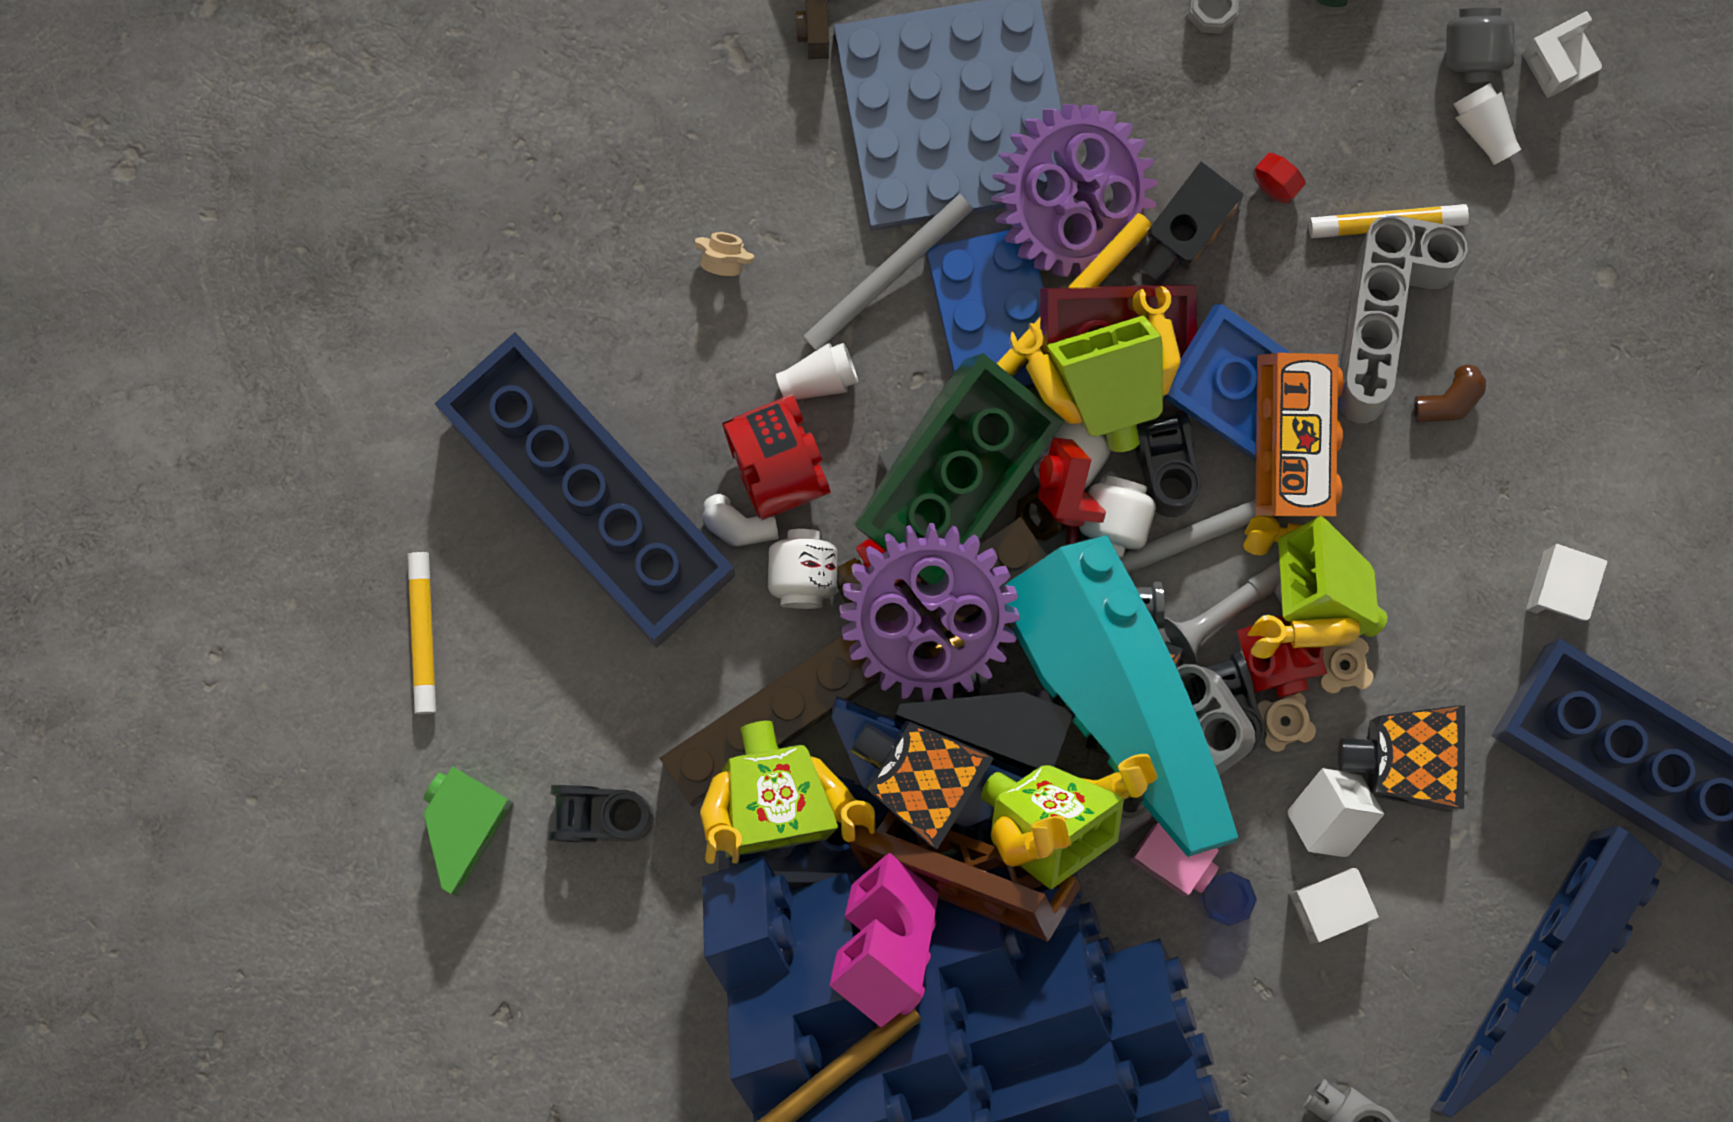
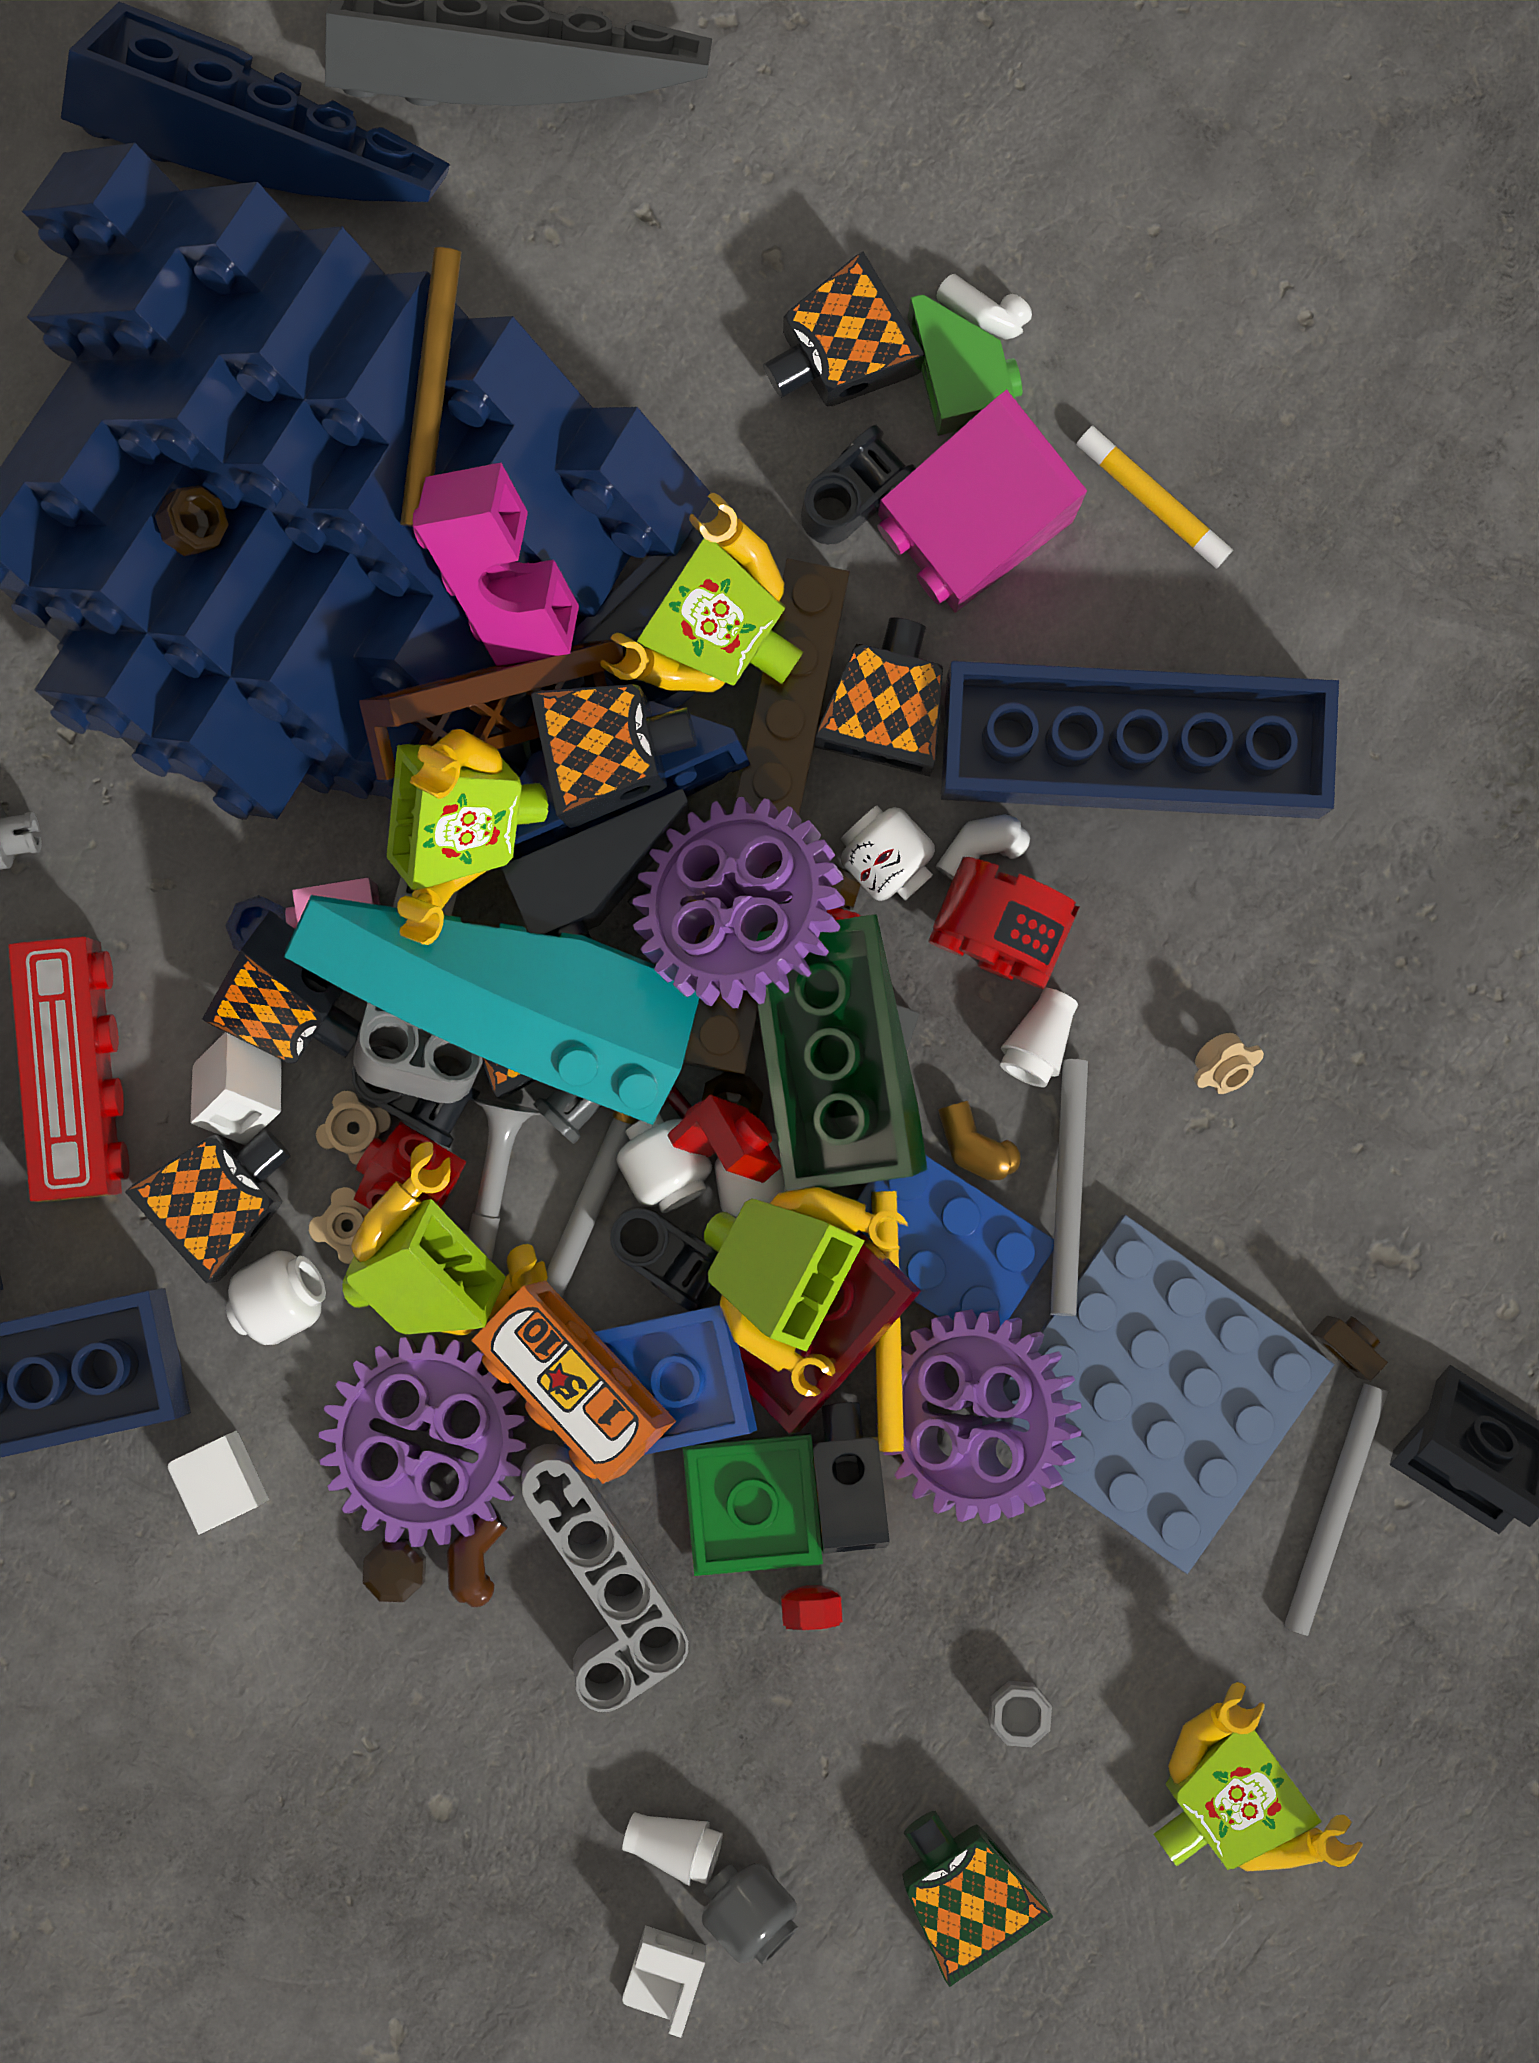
camera: 140 degrees right, 5 degrees up
(412, 850) = (971, 304): none -> white arm
(513, 913) = (845, 339): none -> torso
(538, 724) = (980, 504): none -> dark pink slope
(711, 662) = (887, 703): none -> torso
(923, 348) = (973, 1150): none -> pearl gold arm
(1256, 268) = (752, 1504): none -> green plate
(1270, 837) = (278, 1001): none -> black torso
(1333, 905) = (161, 1004): white panel -> none
(1360, 223) = (699, 1645): bar -> none
(1429, 661) = (275, 1297): none -> white head
(1429, 924) = (67, 1069): none -> red brick
(1460, 468) = (406, 1496): none -> medium lavender gear
(1506, 436) = (394, 1570): none -> dark brown tile

